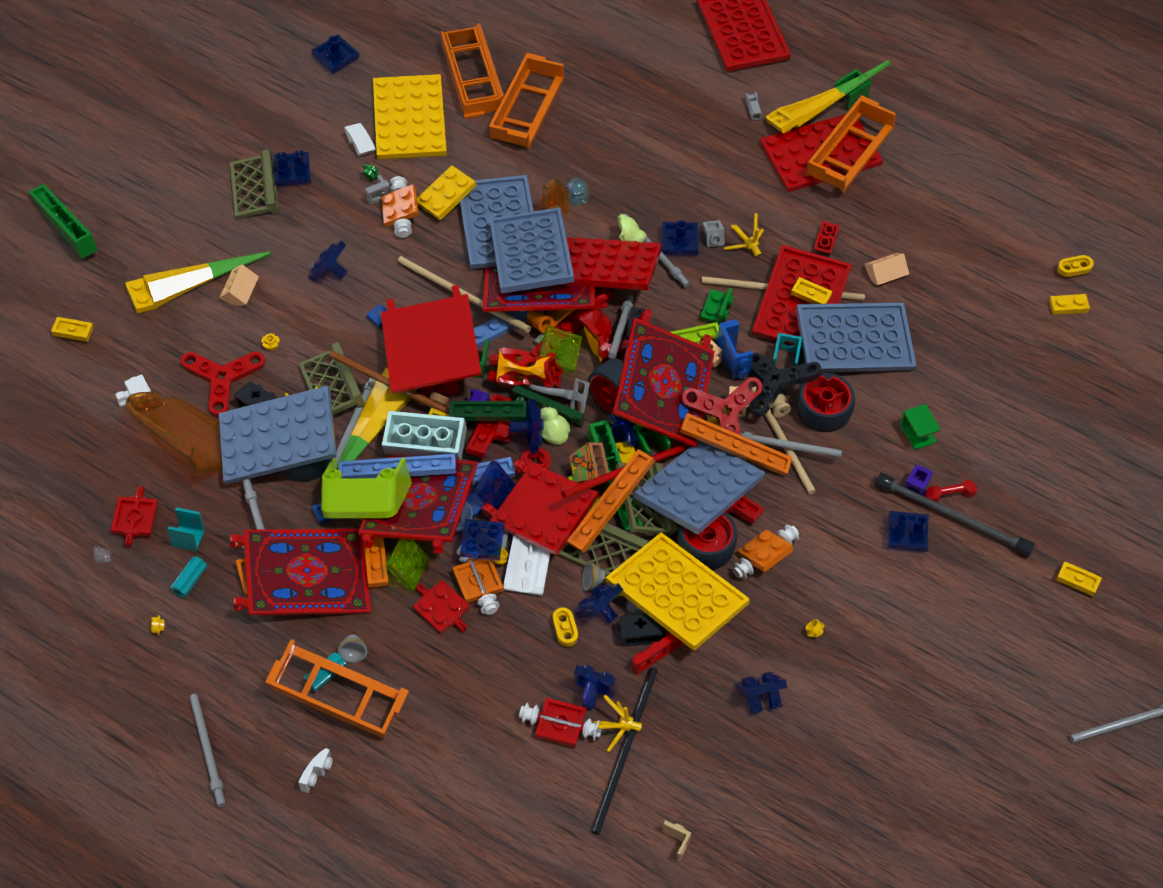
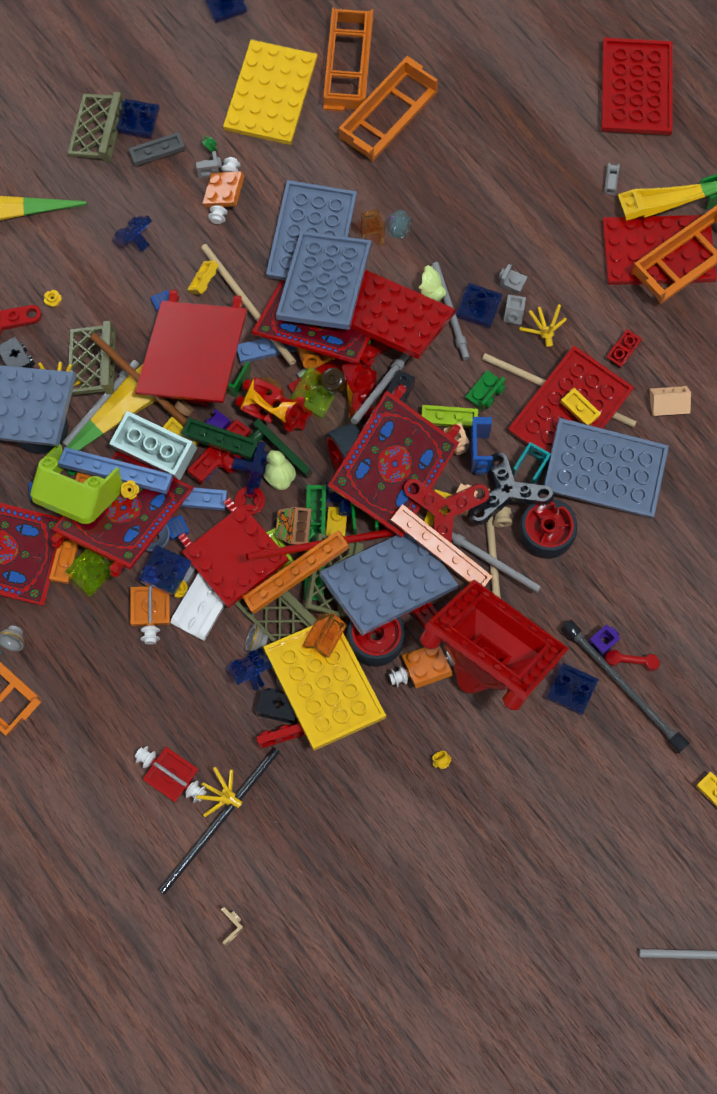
camera: 20 degrees right, 15 degrees up
(239, 286) = (44, 231): light nougat brick -> none
(321, 189) = (156, 149): none -> dark grey plate
(360, 139) = (213, 104): white slope -> none
(410, 284) = (202, 278): none -> yellow plate
(419, 483) = (134, 489): none -> yellow plate
(441, 607) = (107, 622): red plate -> none
(446, 192) = (272, 188): yellow plate -> none
(491, 485) = (195, 516): clear blue plate -> none
(565, 628) = (211, 681): yellow plate -> none
(568, 394) = (304, 440): light grey piece -> none
(576, 329) = (333, 380): none -> dark brown head
(594, 684) = (211, 751): clear blue plate -> none
(660, 547) = (325, 634): none -> clear orange panel
(700, 210) = (512, 280): none -> light grey bracket
(767, 683) = (365, 803): clear blue plate -> none
(822, 510) = (493, 645): none -> red piece
(919, 426) = (629, 584): green piece -> none

